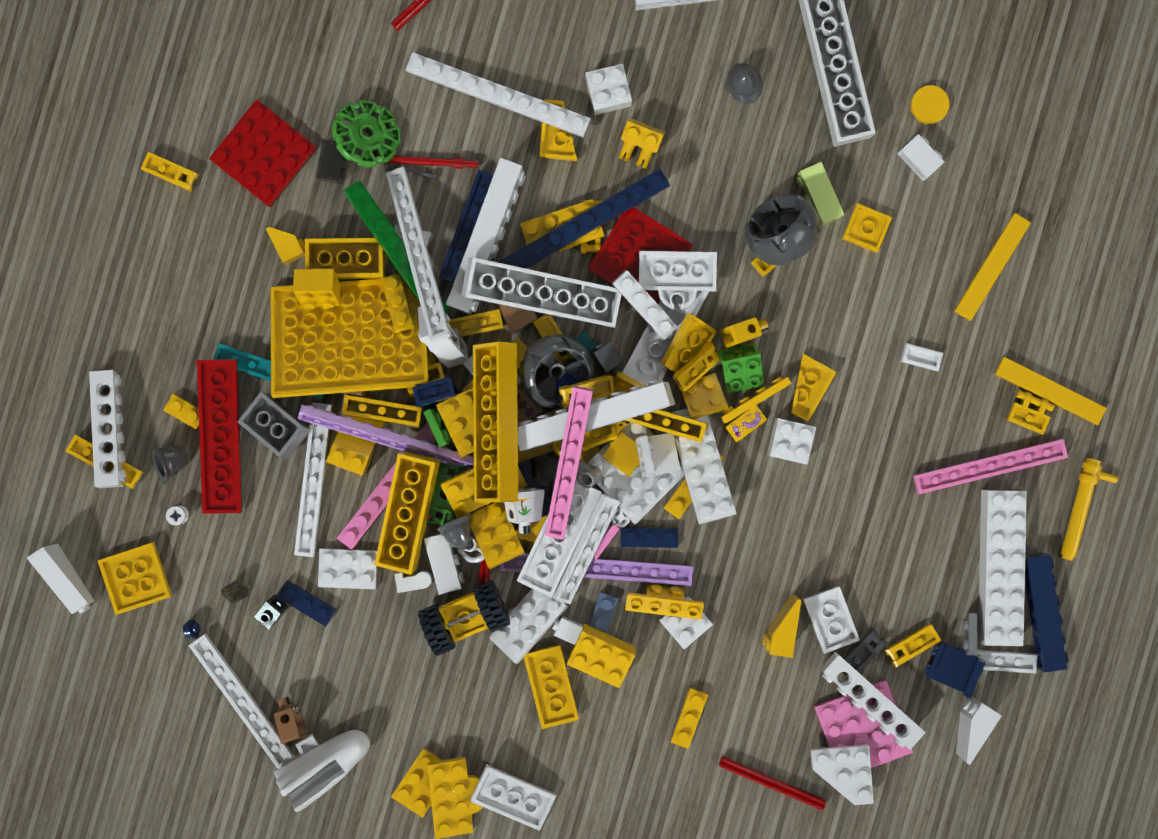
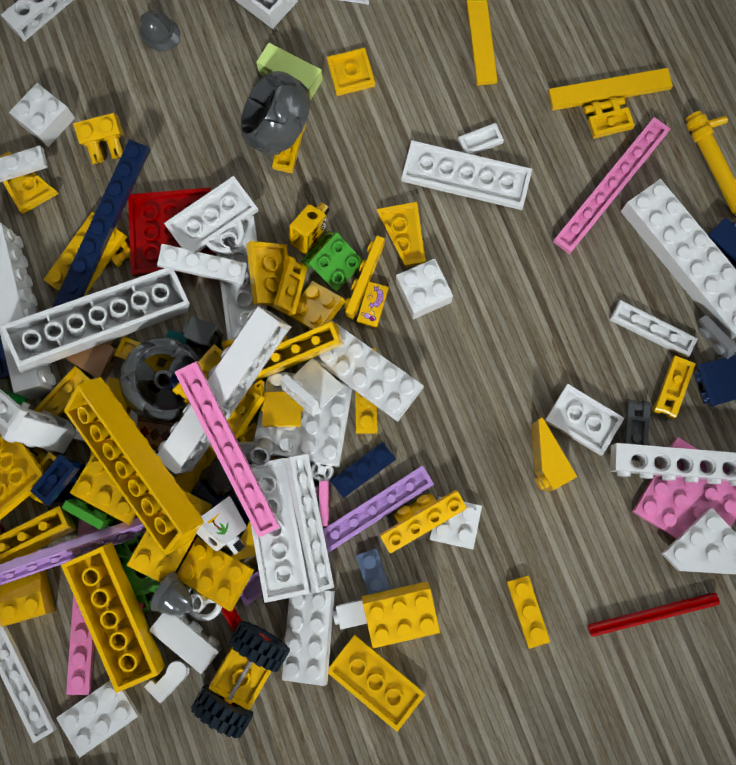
camera: 30 degrees left, 10 degrees down
(889, 377) = (466, 175): none -> white plate
(932, 593) = (653, 329): none -> white tile

